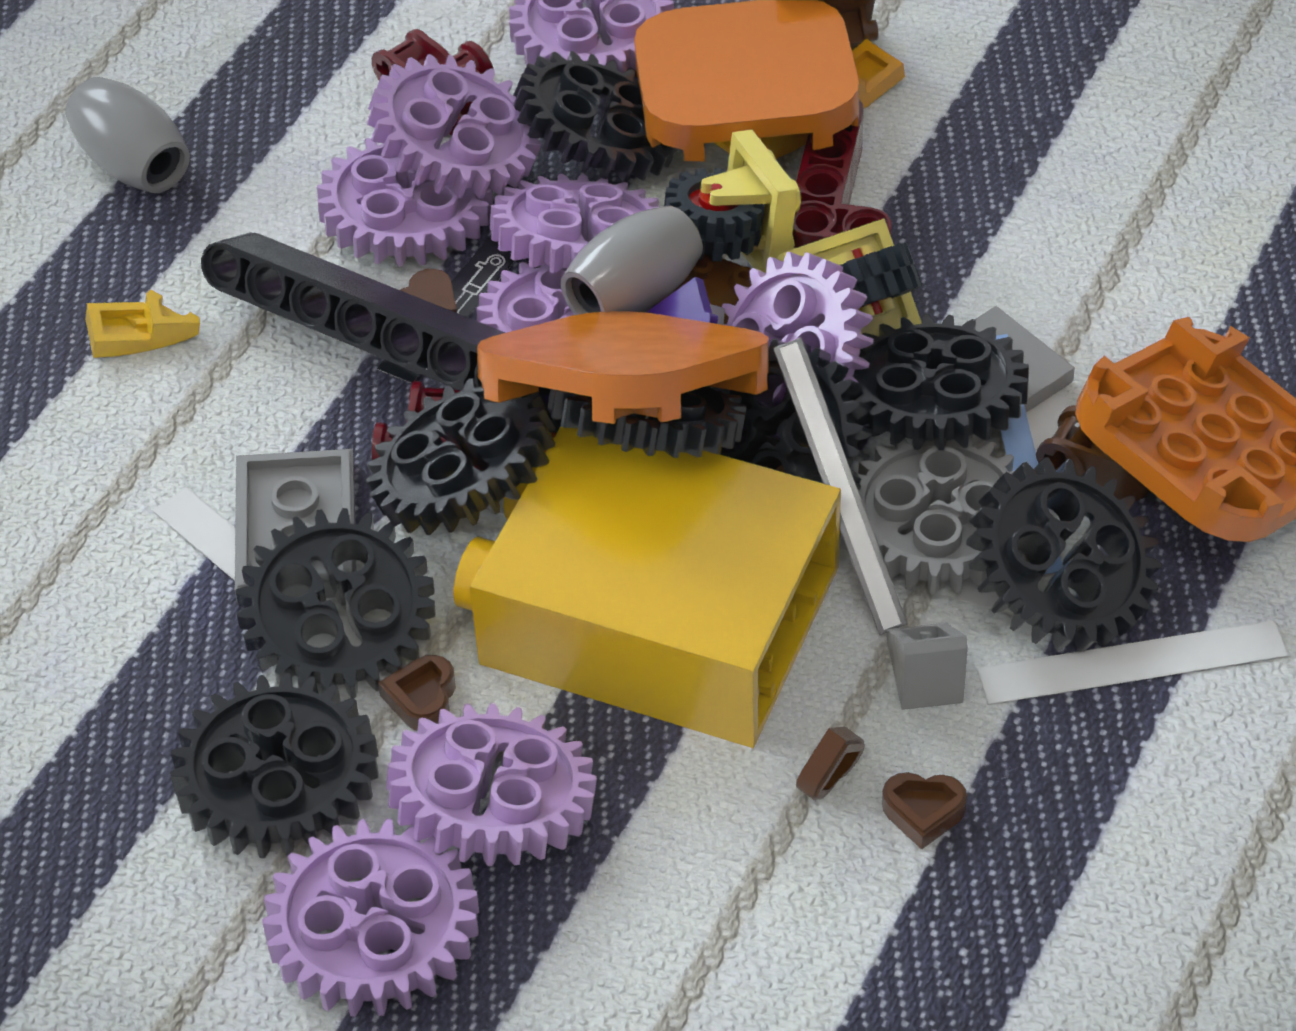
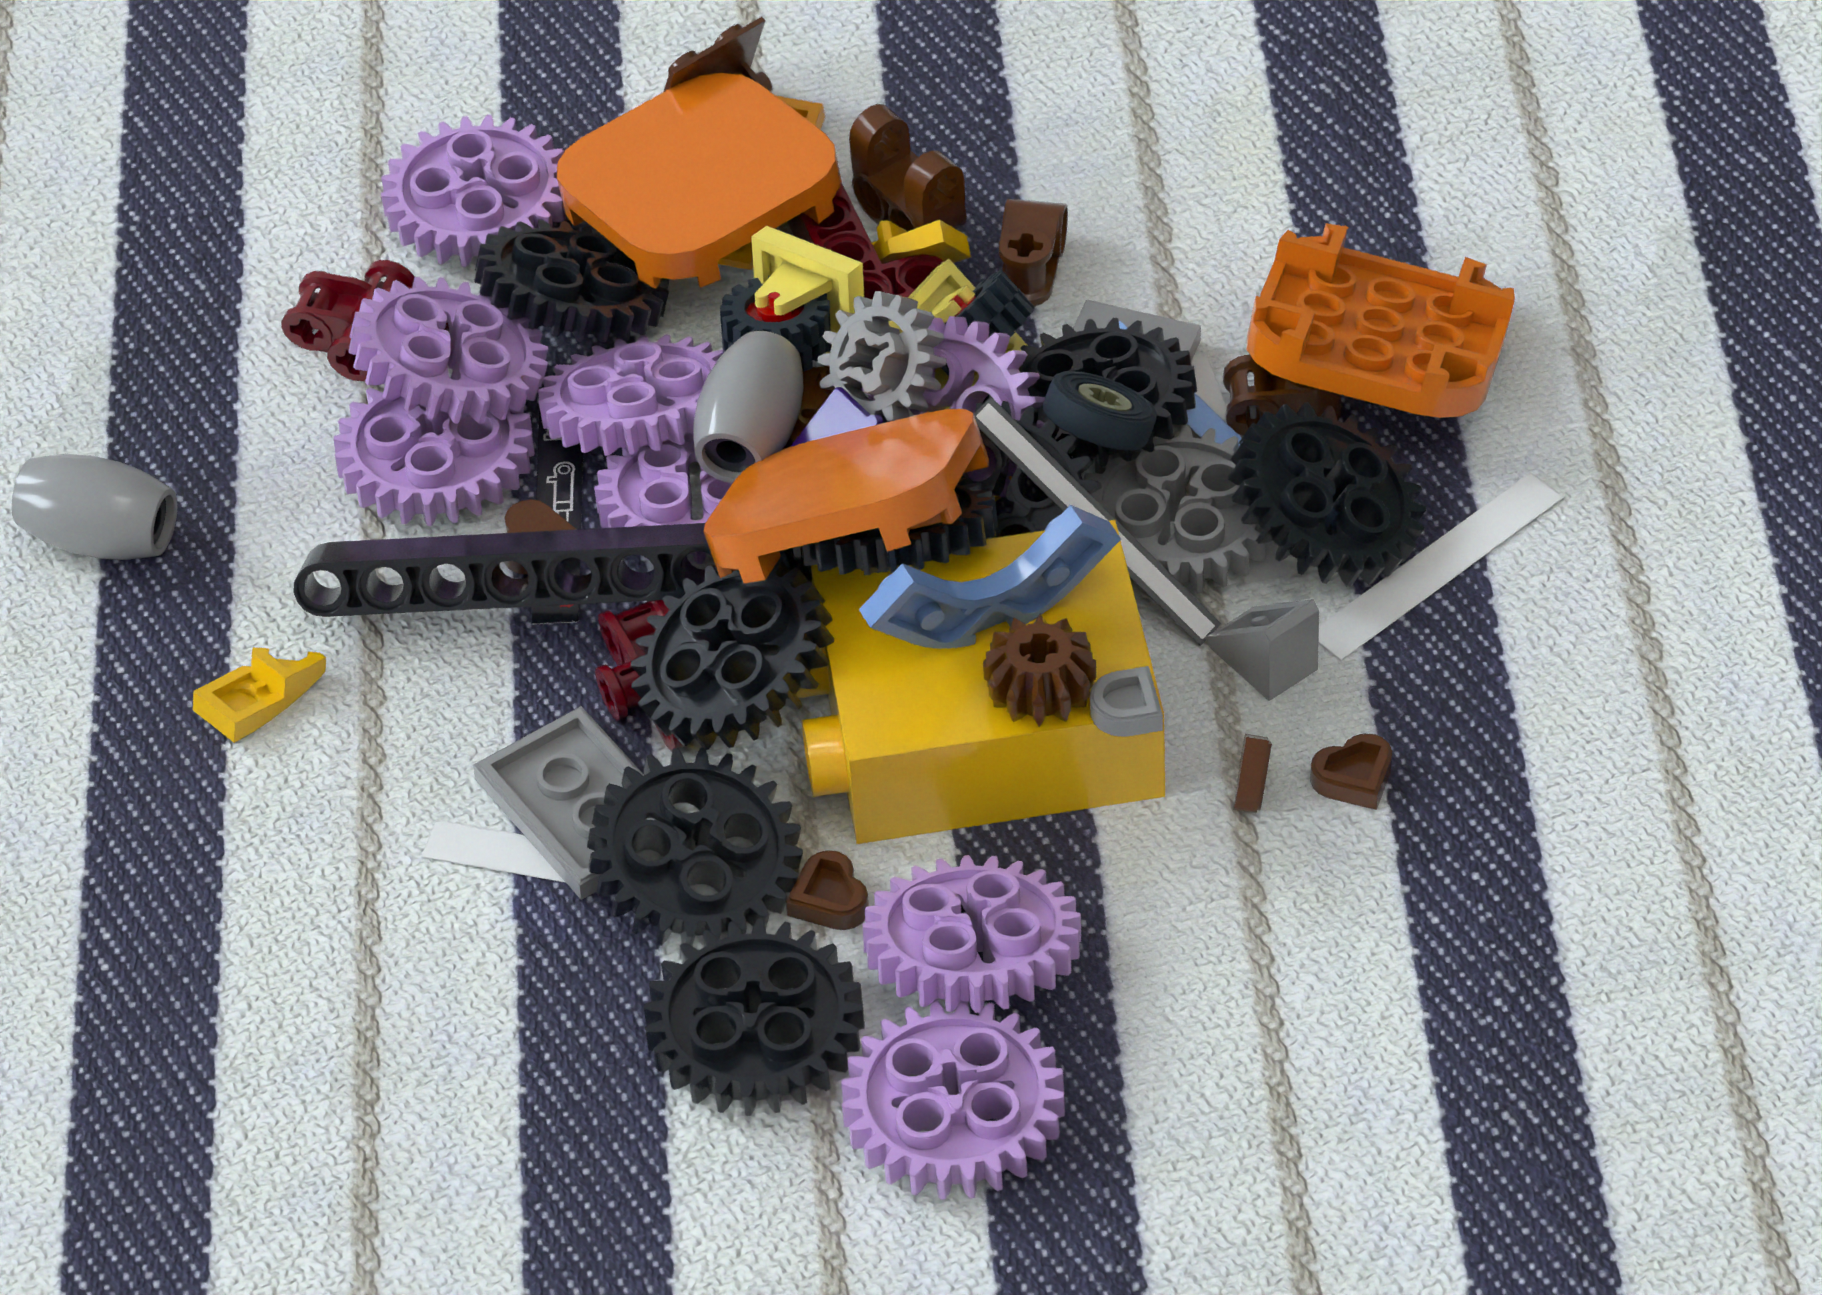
camera: 30 degrees left, 0 degrees up
(633, 503) = (950, 612): none -> medium blue plate
(666, 582) = (1039, 669): none -> reddish brown gear
(723, 646) = (1126, 703): none -> light grey tile
(751, 269) = (882, 360): none -> light grey gear
(893, 199) = (931, 239): none -> yellow slope
(897, 392) = (1099, 410): none -> black bush
(912, 146) = (896, 182): none -> reddish brown piece
(982, 245) = (1032, 244): none -> reddish brown piece

